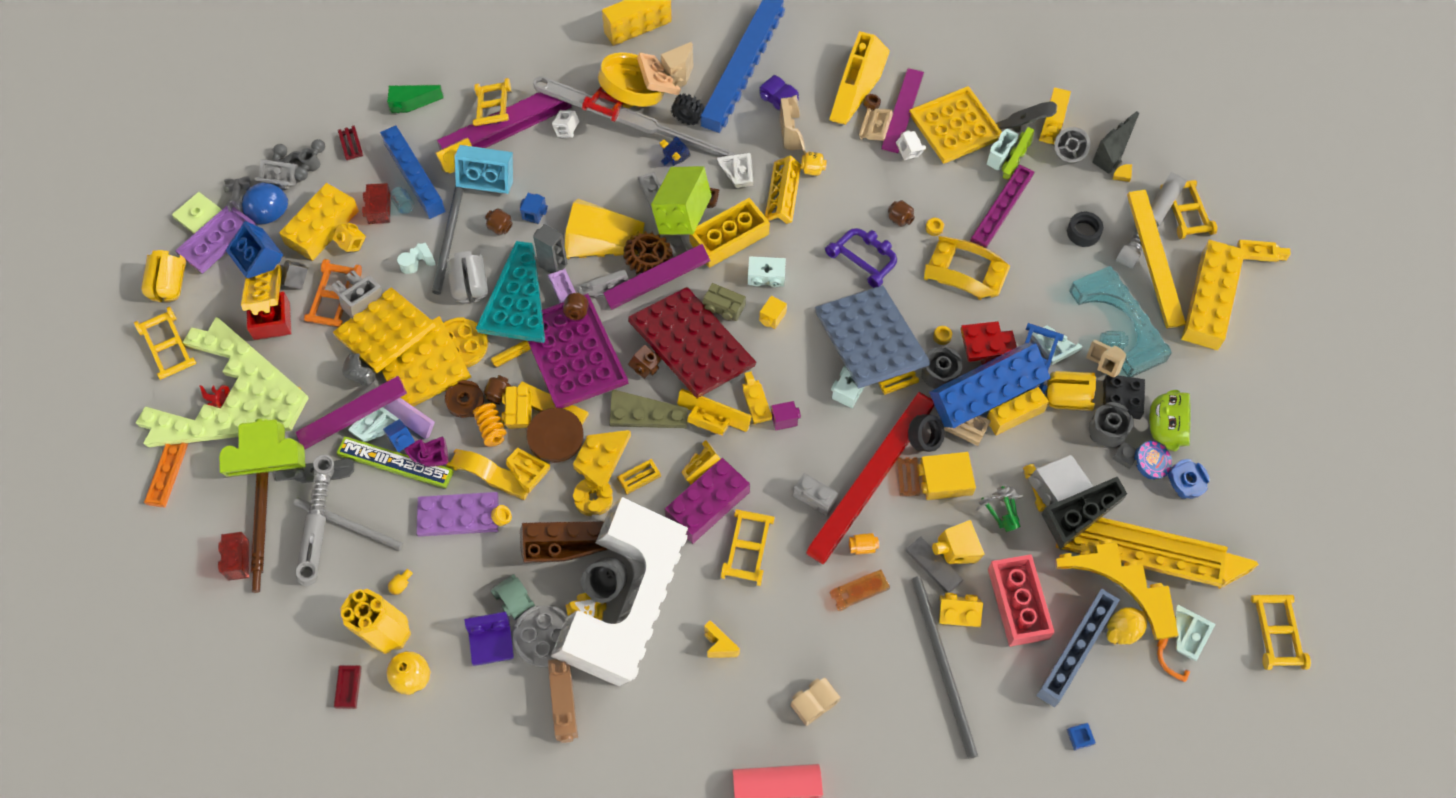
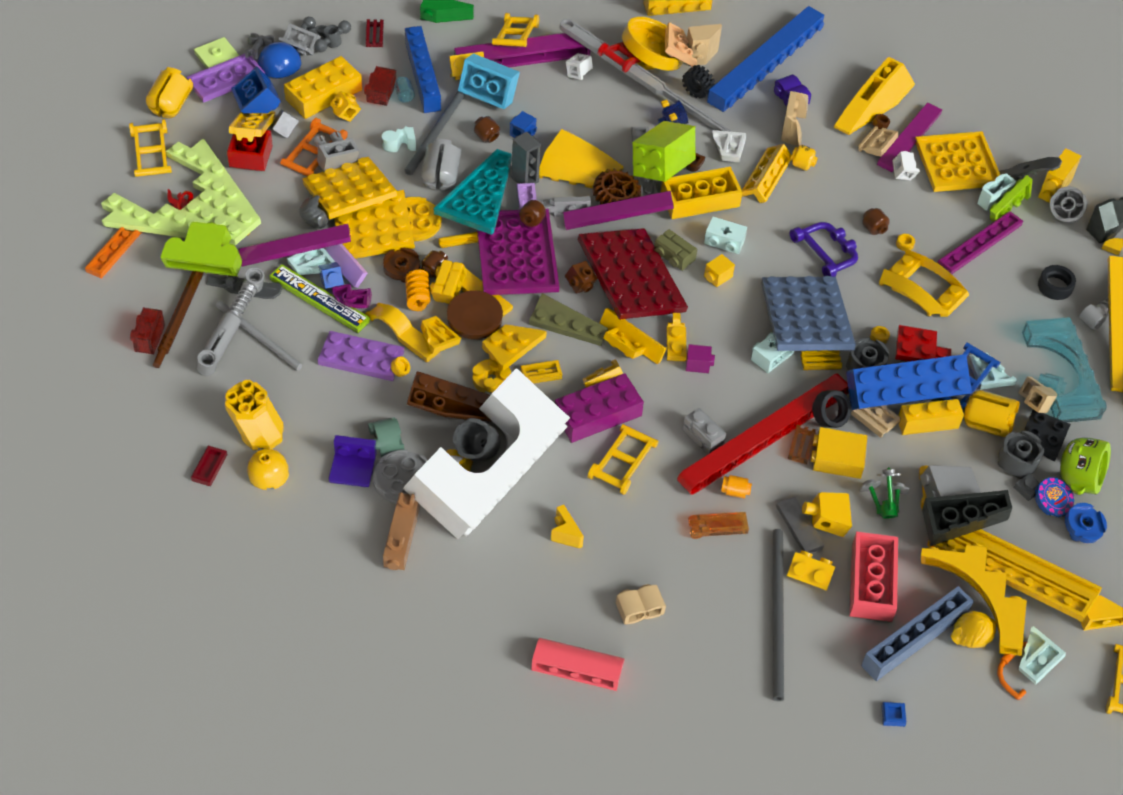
camera: 15 degrees right, 10 degrees down
(399, 582) = (287, 395): yellow cylinder -> none

